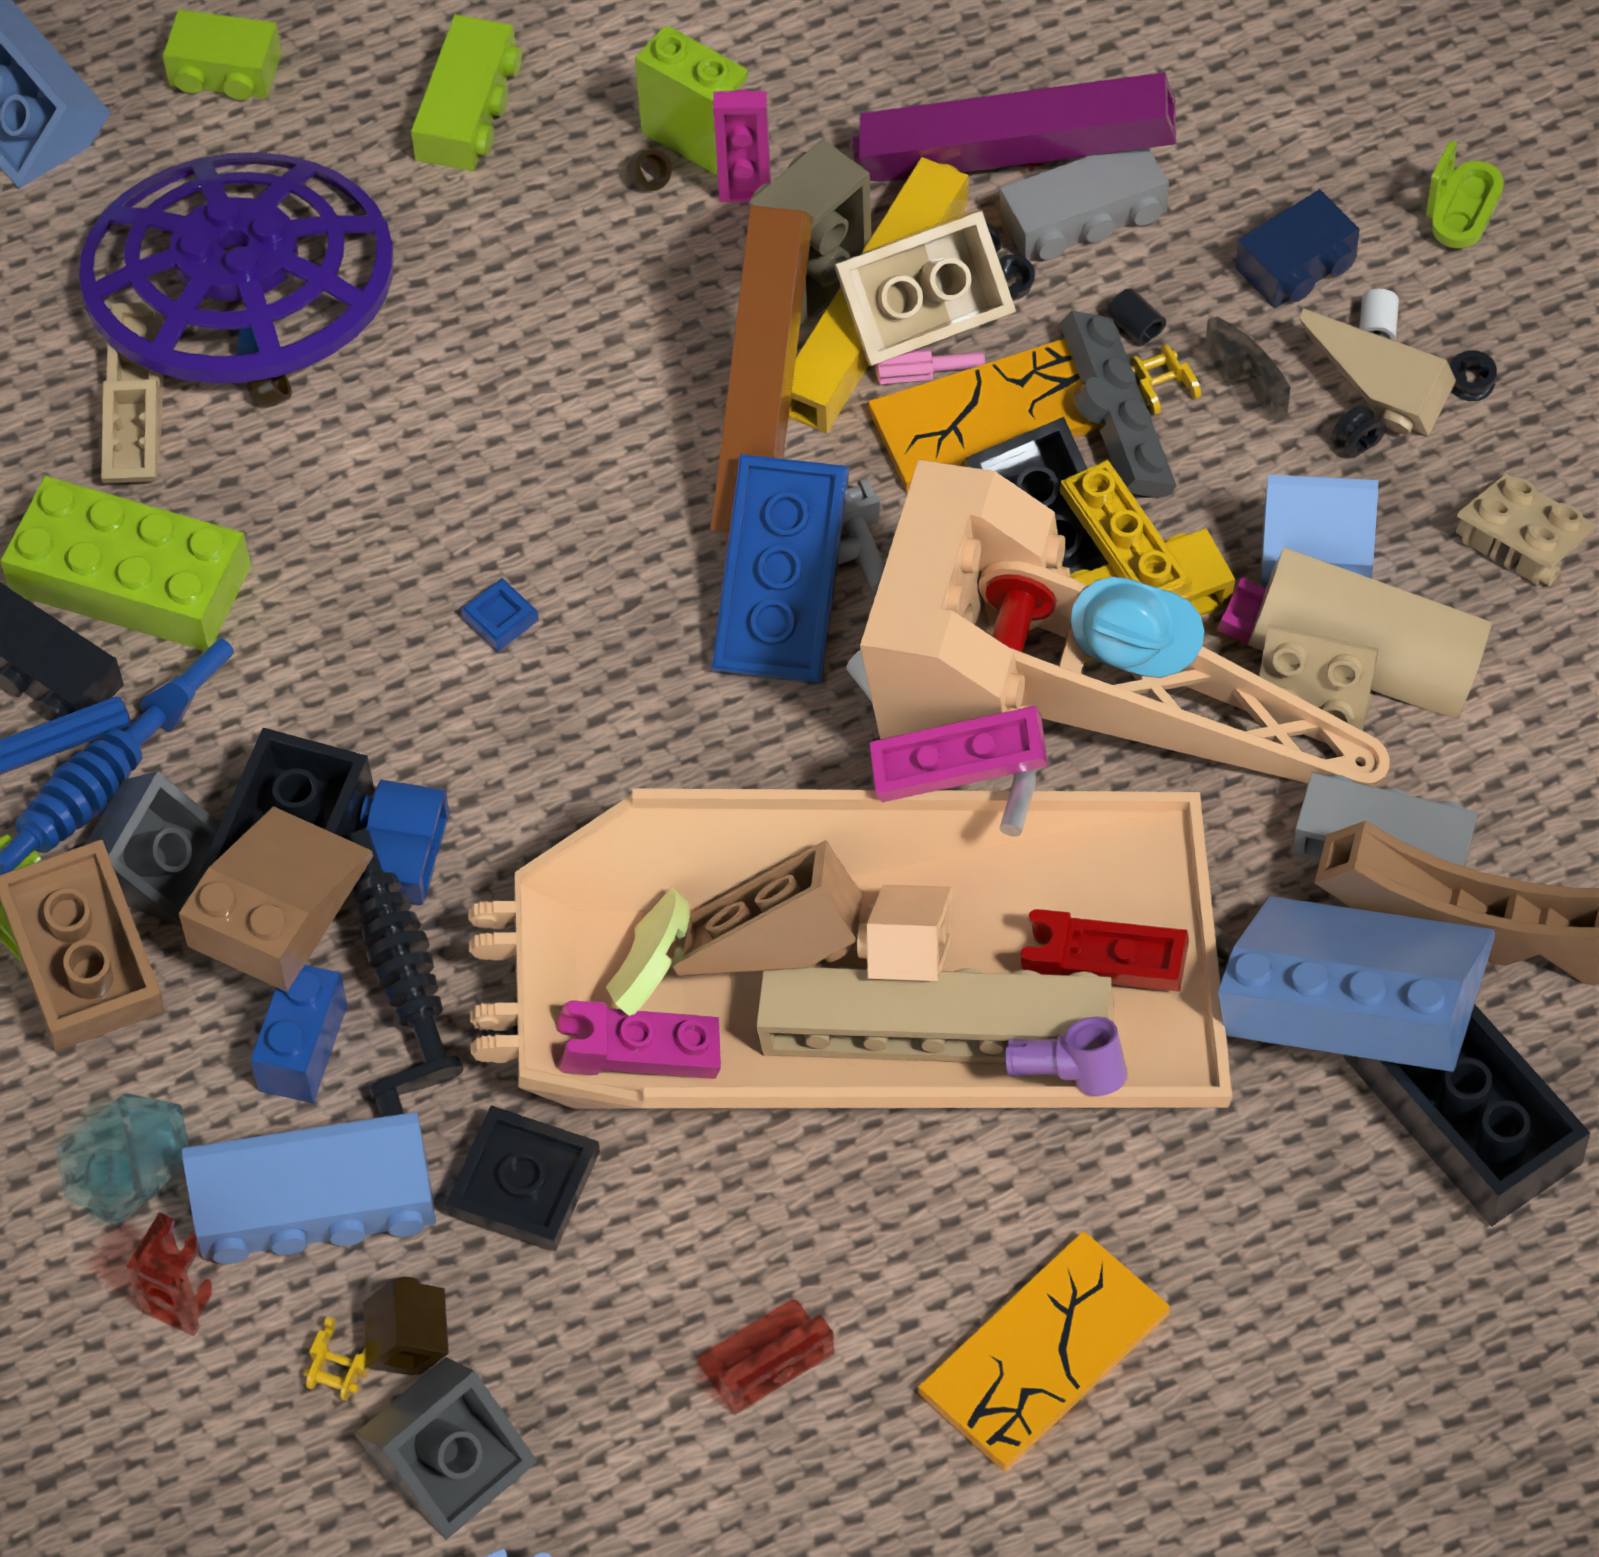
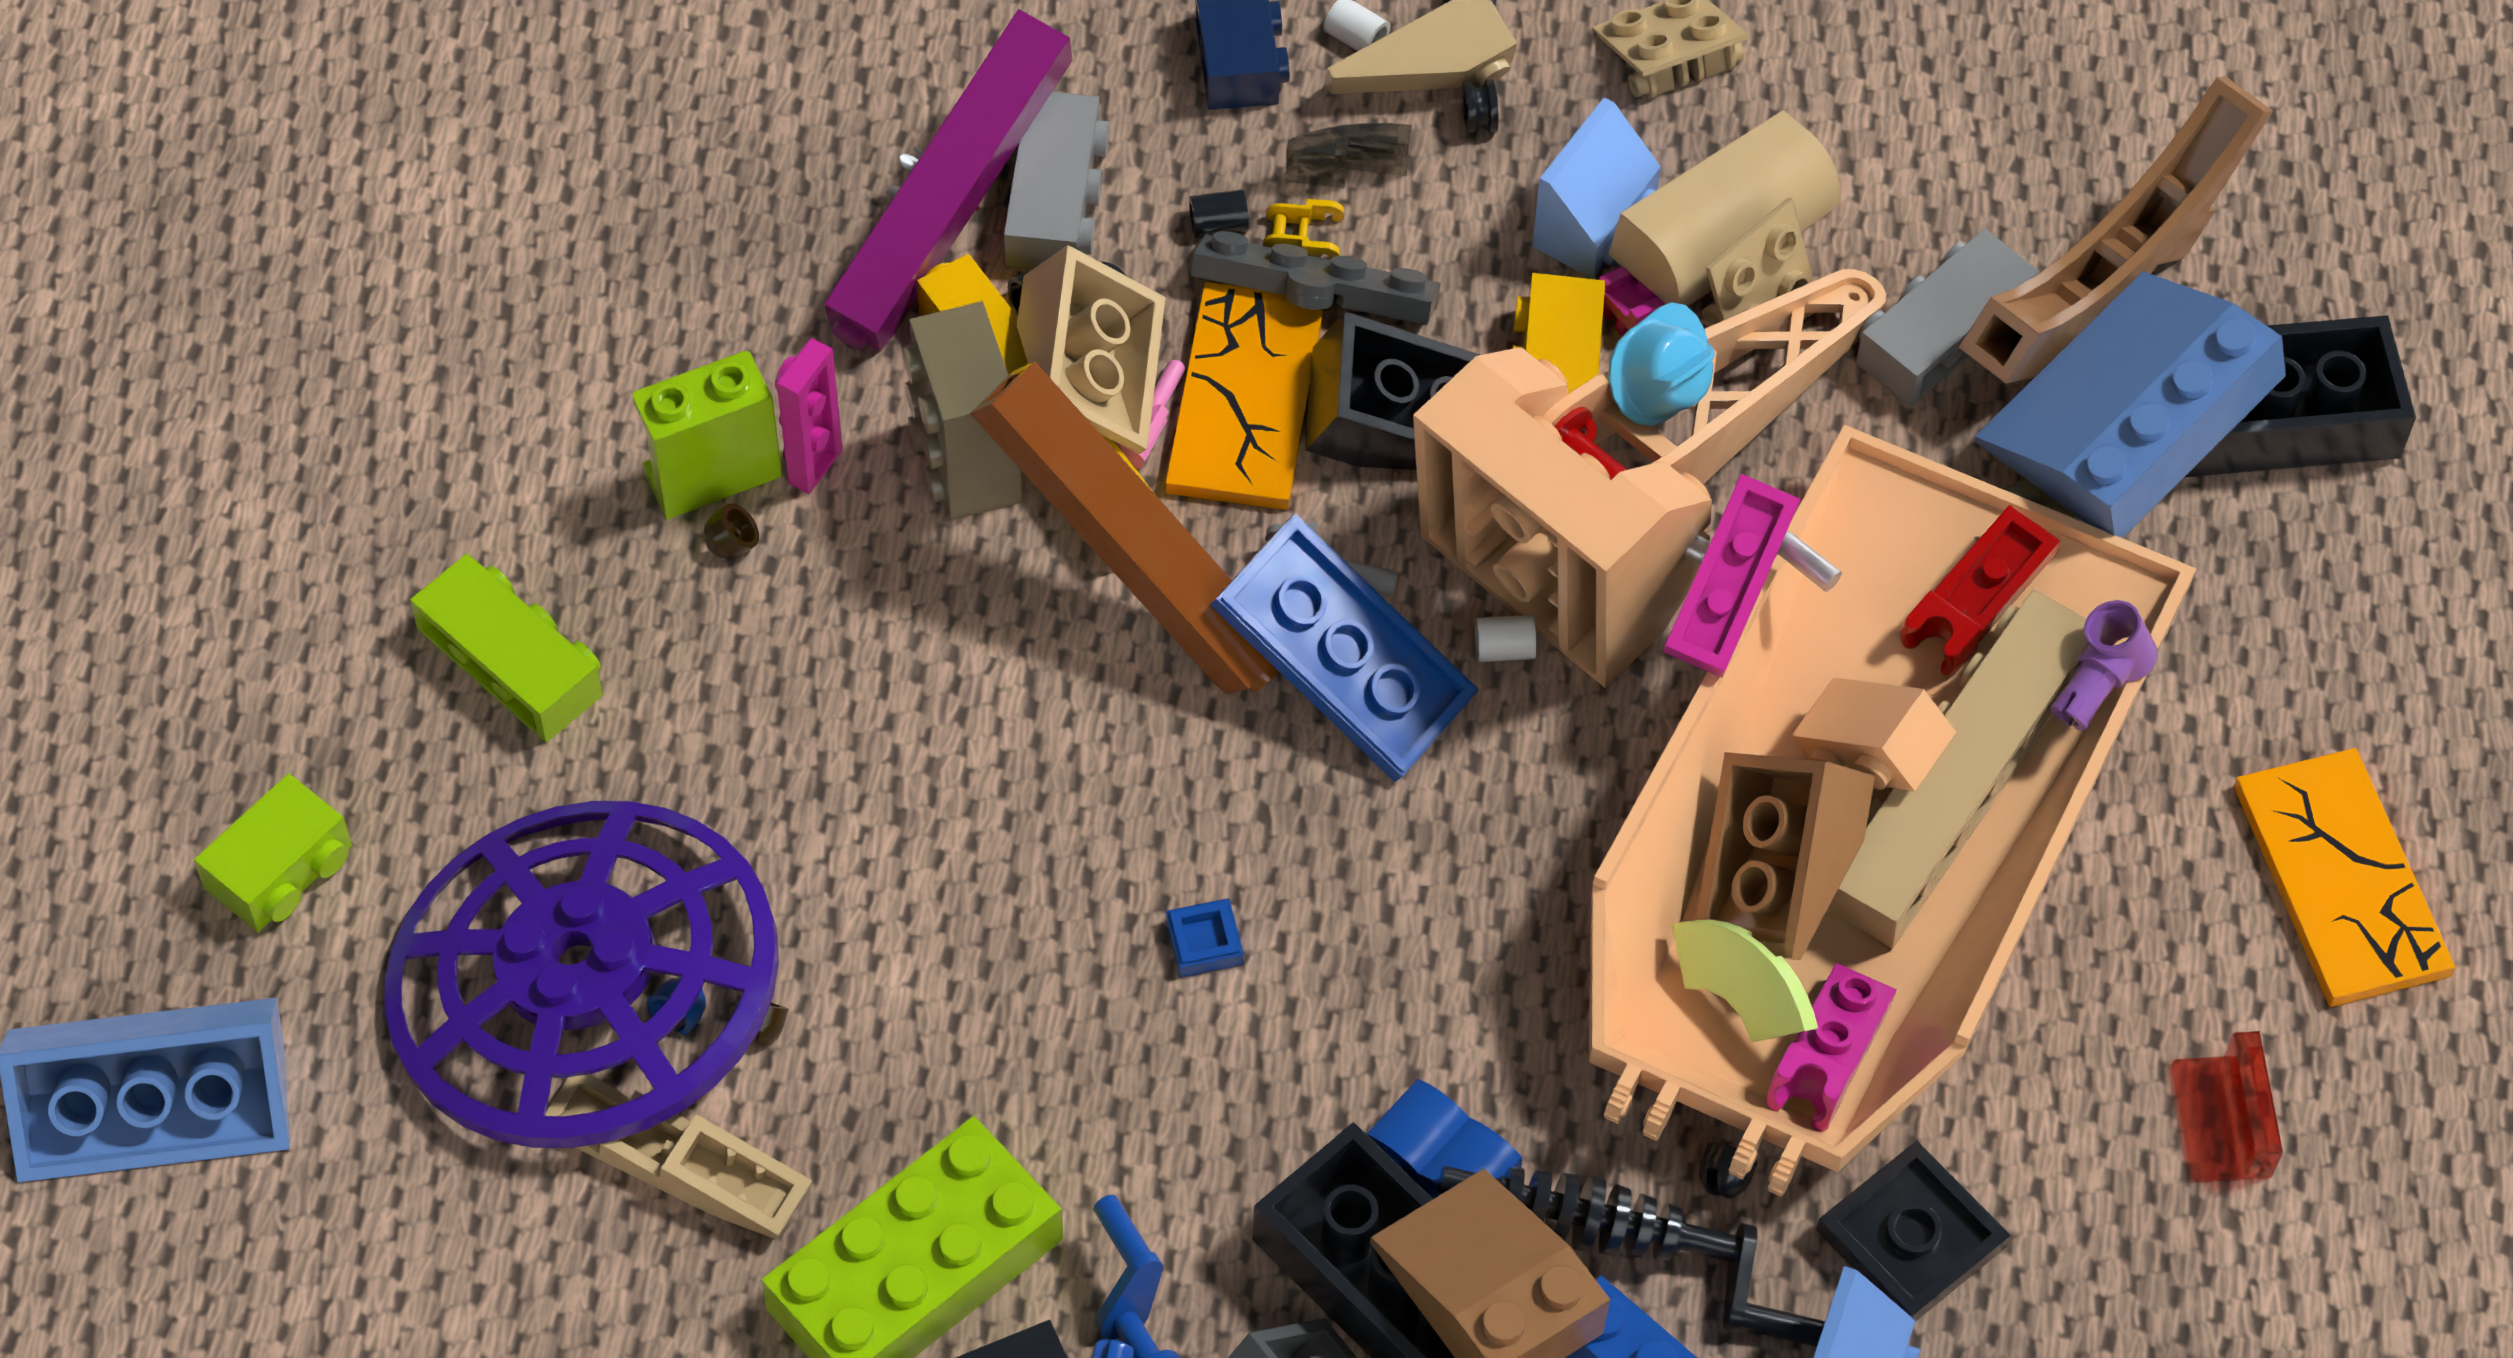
camera: 65 degrees left, 0 degrees up
(1108, 512) = (1457, 333): yellow tile -> none

